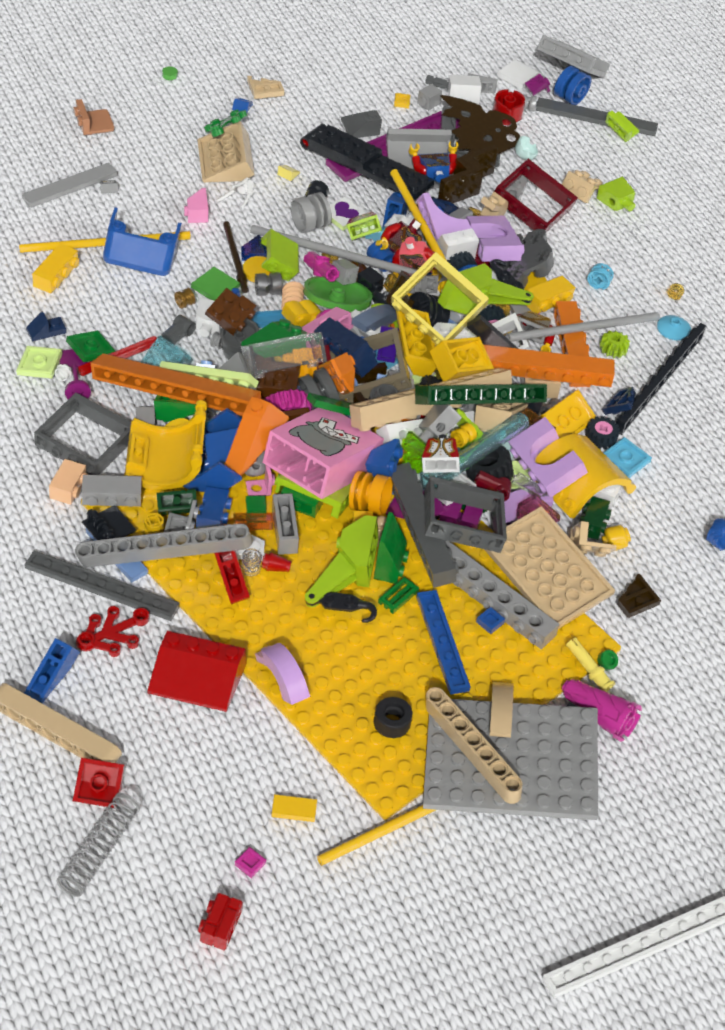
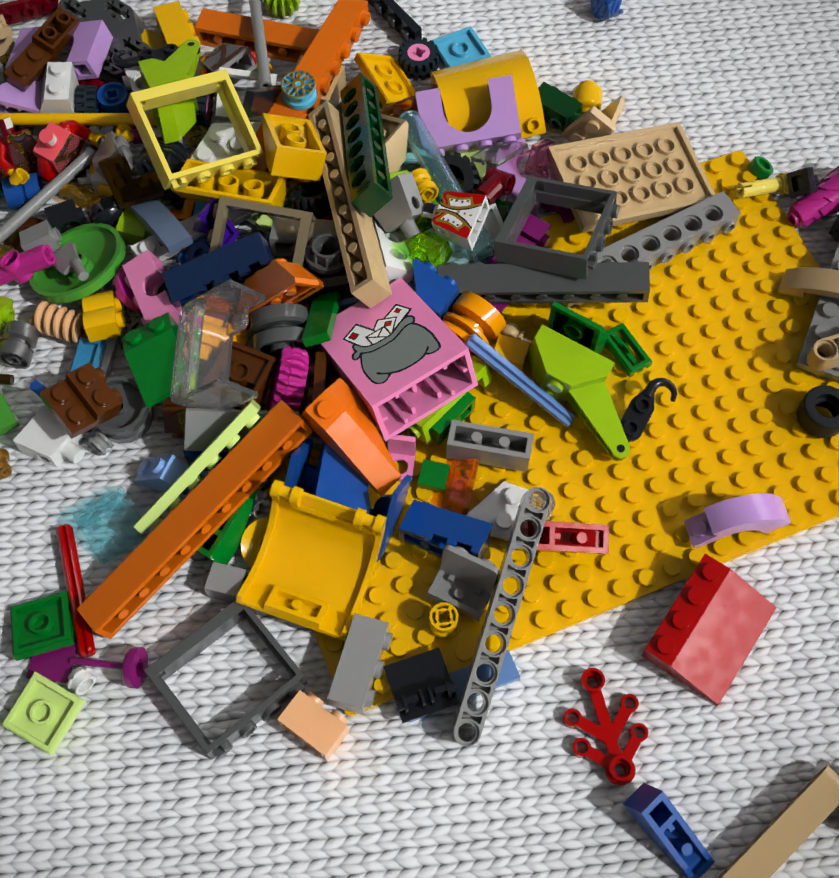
camera: 65 degrees left, 15 degrees up
(102, 585) = (515, 726): dark grey tile -> none
(175, 502) = (414, 576): dark green brick -> none
(180, 327) = (56, 486): dark grey piece -> none
(276, 563) = (547, 475): red cone -> none
(333, 287) = (69, 260): none -> light grey piece
(339, 522) = (520, 380): none -> medium blue axle
(443, 642) = (713, 322): blue plate -> none
(486, 225) = (45, 47): none -> reddish brown slope
(490, 620) = (690, 262): blue plate -> none
(510, 353) = (292, 85): none -> medium azure wheel
(595, 676) = (802, 182): none -> black tile
(620, 402) = (383, 23): dark blue wing -> none
(638, 598) = (676, 107): dark brown wing -> none

